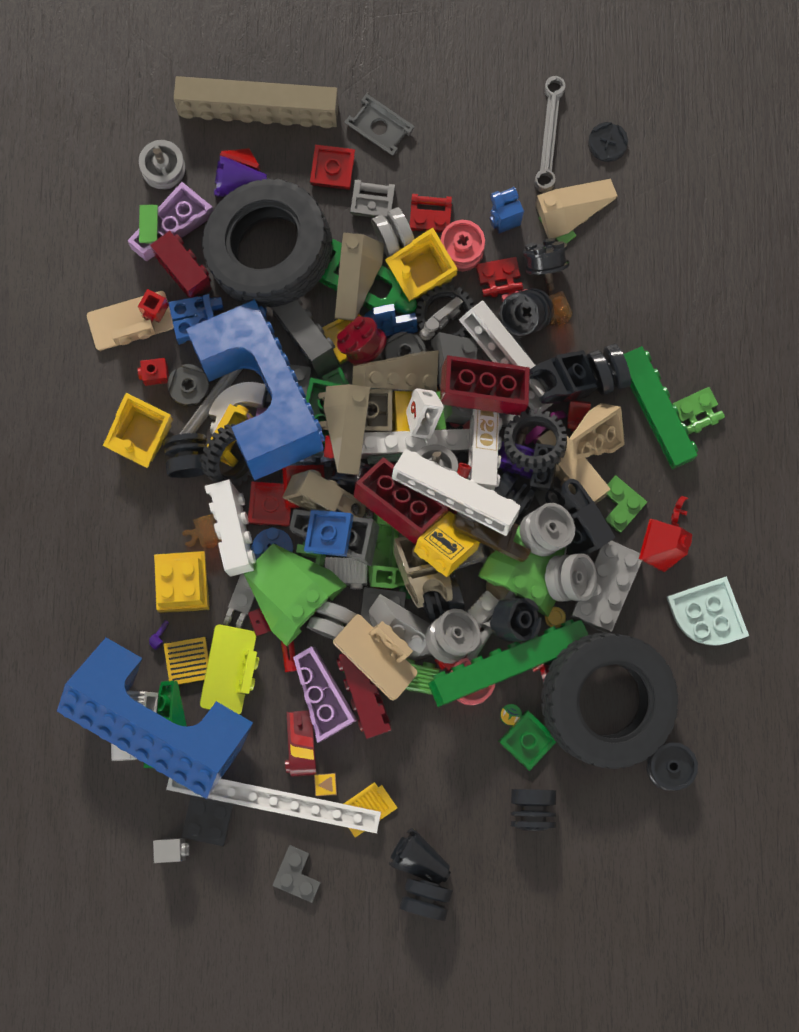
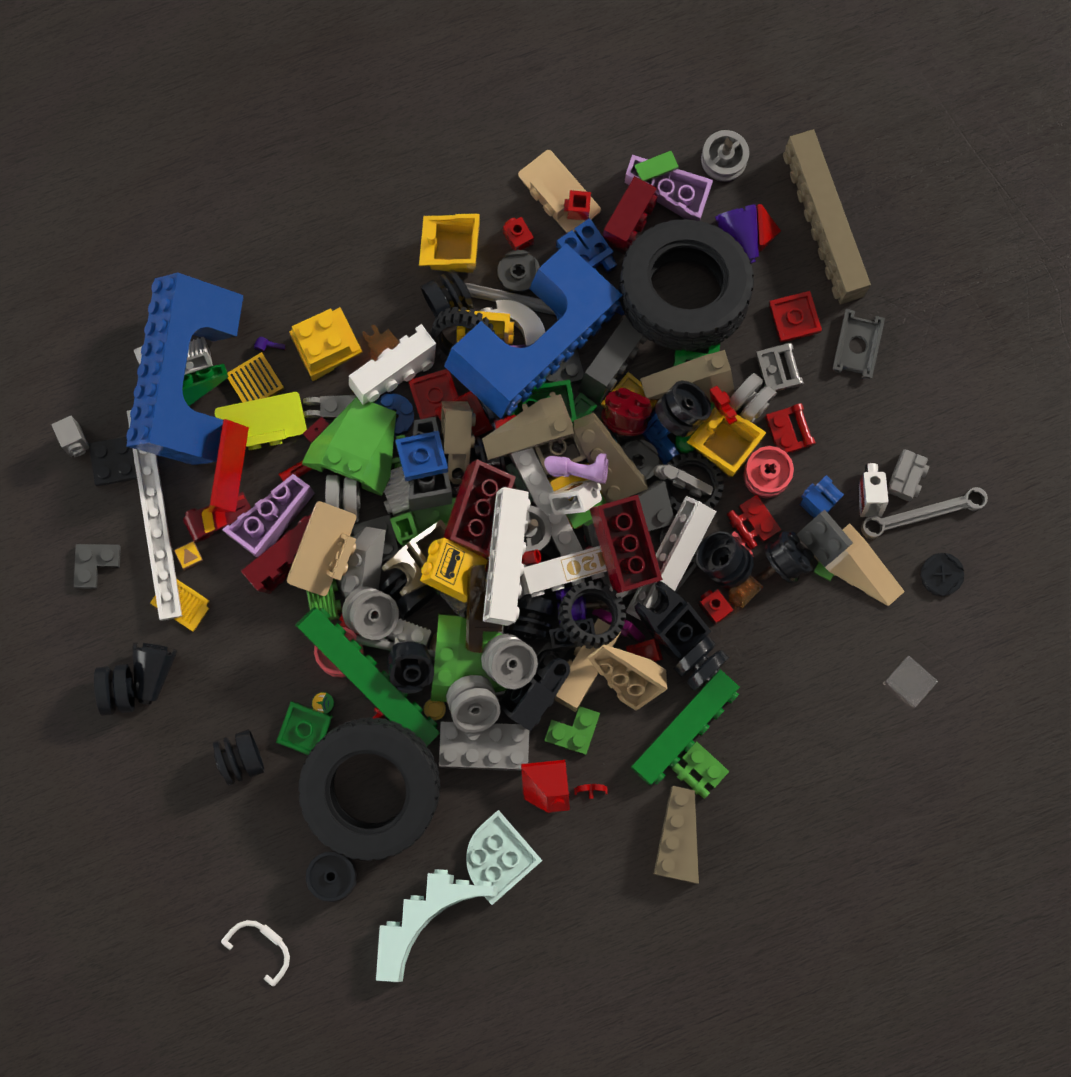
camera: 65 degrees right, 0 degrees up
(264, 714) = (228, 467): none -> red slope
(381, 288) = (683, 408): none -> black wheel
(388, 254) = (721, 402): none -> red plate
(394, 409) = (564, 467): none -> lavender piece
(512, 133) = (907, 475): none -> light grey brick
(516, 166) = (873, 492): none -> white torso
(542, 220) = (824, 538): none -> dark grey plate
(561, 339) = (715, 606): none -> red brick
(689, 205) = (911, 681): none -> clear piece
(700, 843) = (271, 935): none -> white piece
(725, 674) = (397, 941): none -> light aqua arch
(751, 452) = (678, 842): none -> dark tan wedge

